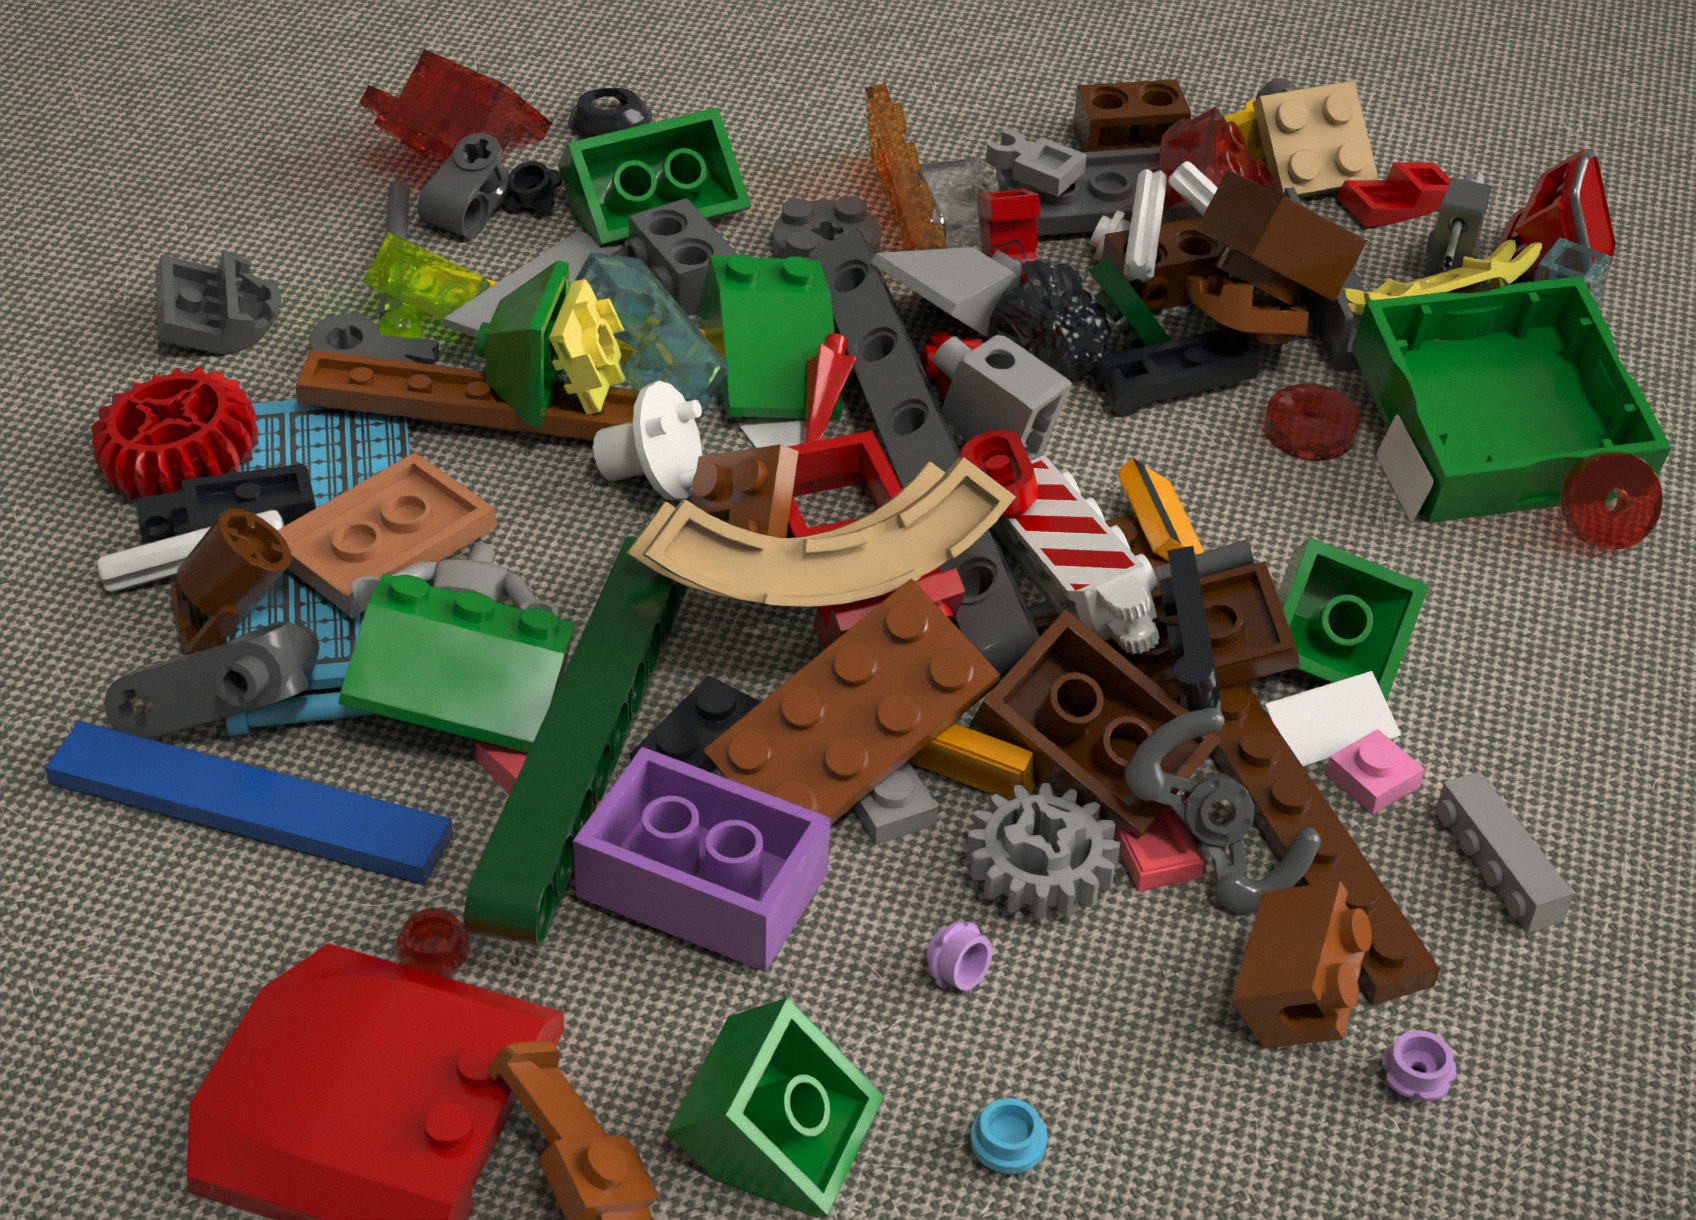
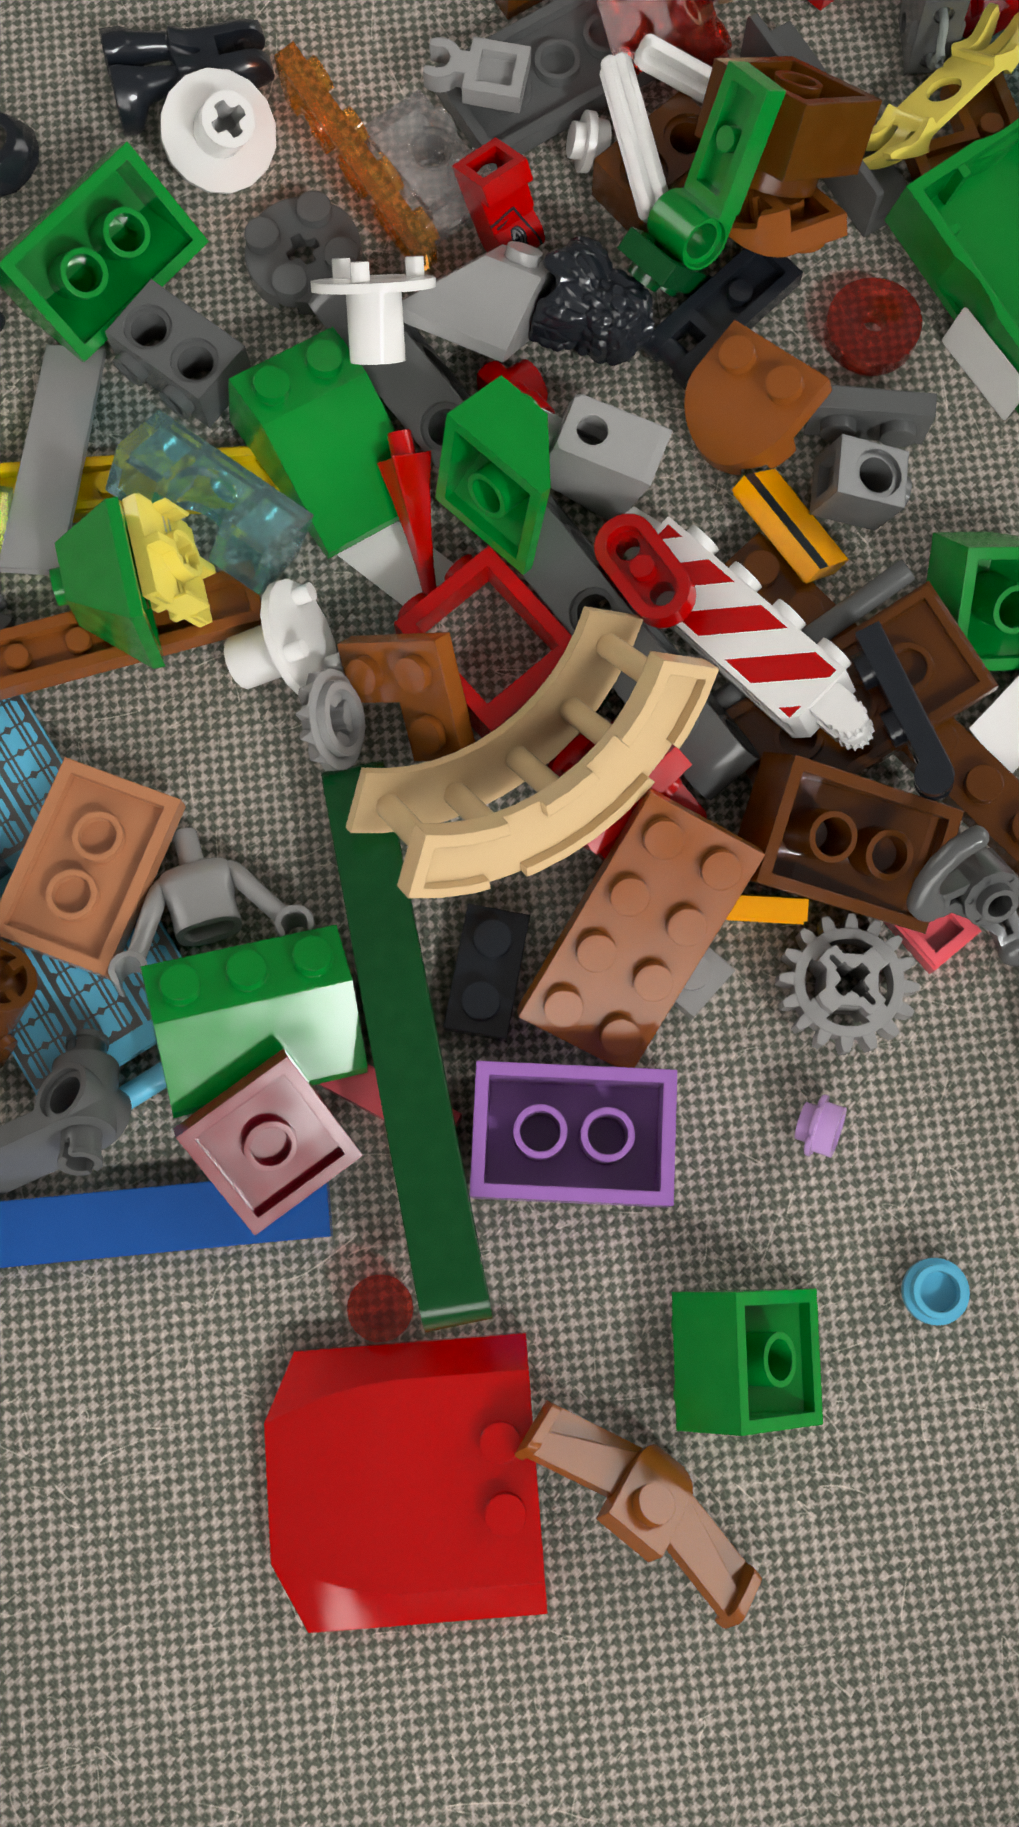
camera: 20 degrees left, 35 degrees up
(412, 749) = (268, 1142): none -> plate
(655, 470) = (331, 719): none -> light grey gear
(798, 102) = (221, 45): none -> black piece
(799, 145) = (218, 131): none -> white piece
(857, 235) = (374, 306): none -> white piece
(900, 361) = (498, 469): none -> green slope
(1164, 417) = (750, 401): none -> dark orange slope
(1202, 243) = (699, 217): none -> green plate
(1243, 502) = (839, 486): none -> dark grey brick
(1276, 466) = (874, 414): none -> dark grey plate

